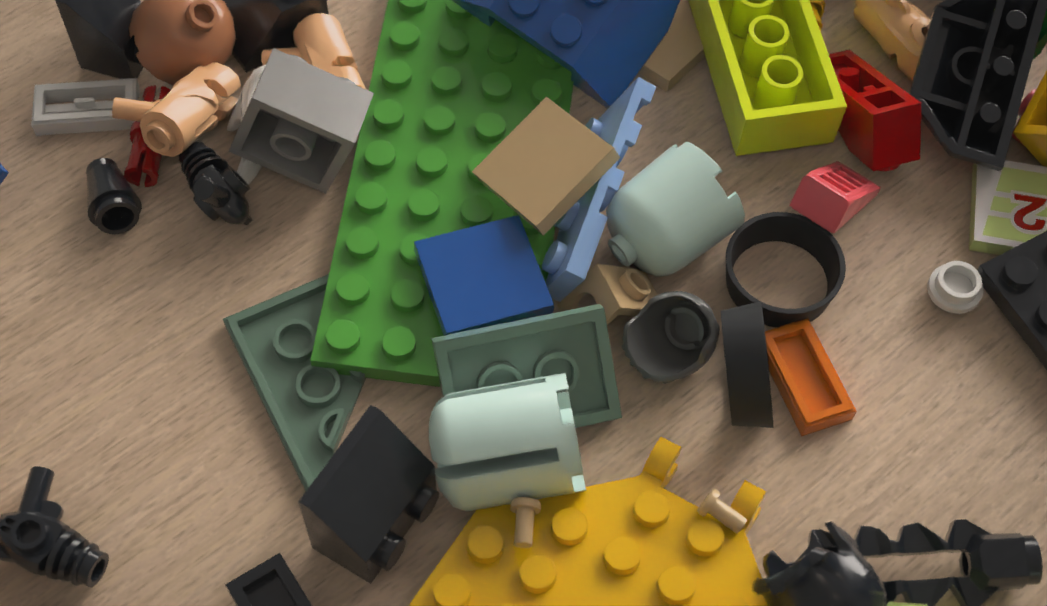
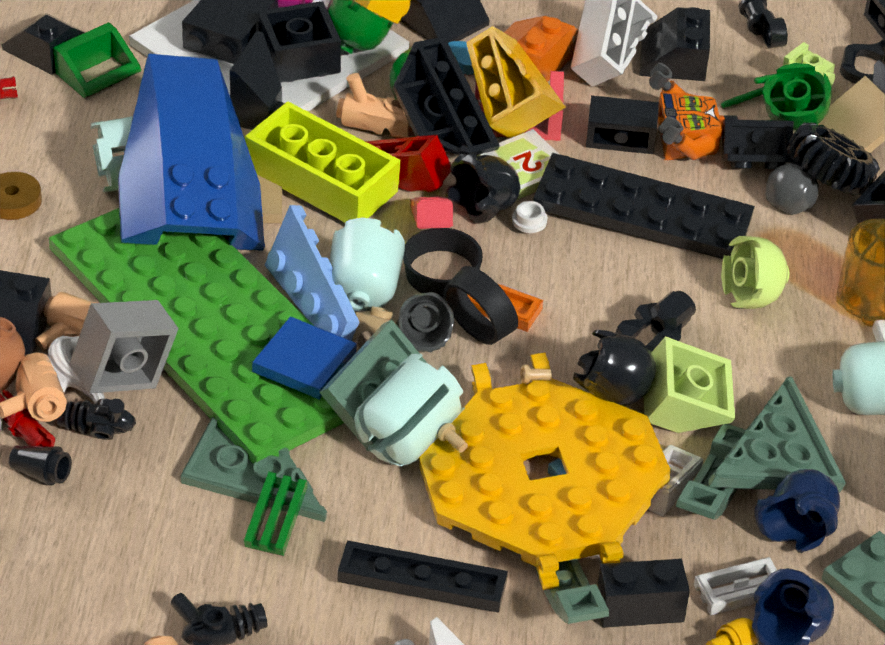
camera: 45 degrees left, 15 degrees down
(250, 440) = (284, 485): none -> green tile
(369, 497) = (367, 485): black slope -> none
(546, 165) = (282, 281): tan tile -> none
(930, 207) = (483, 185): none -> black hair

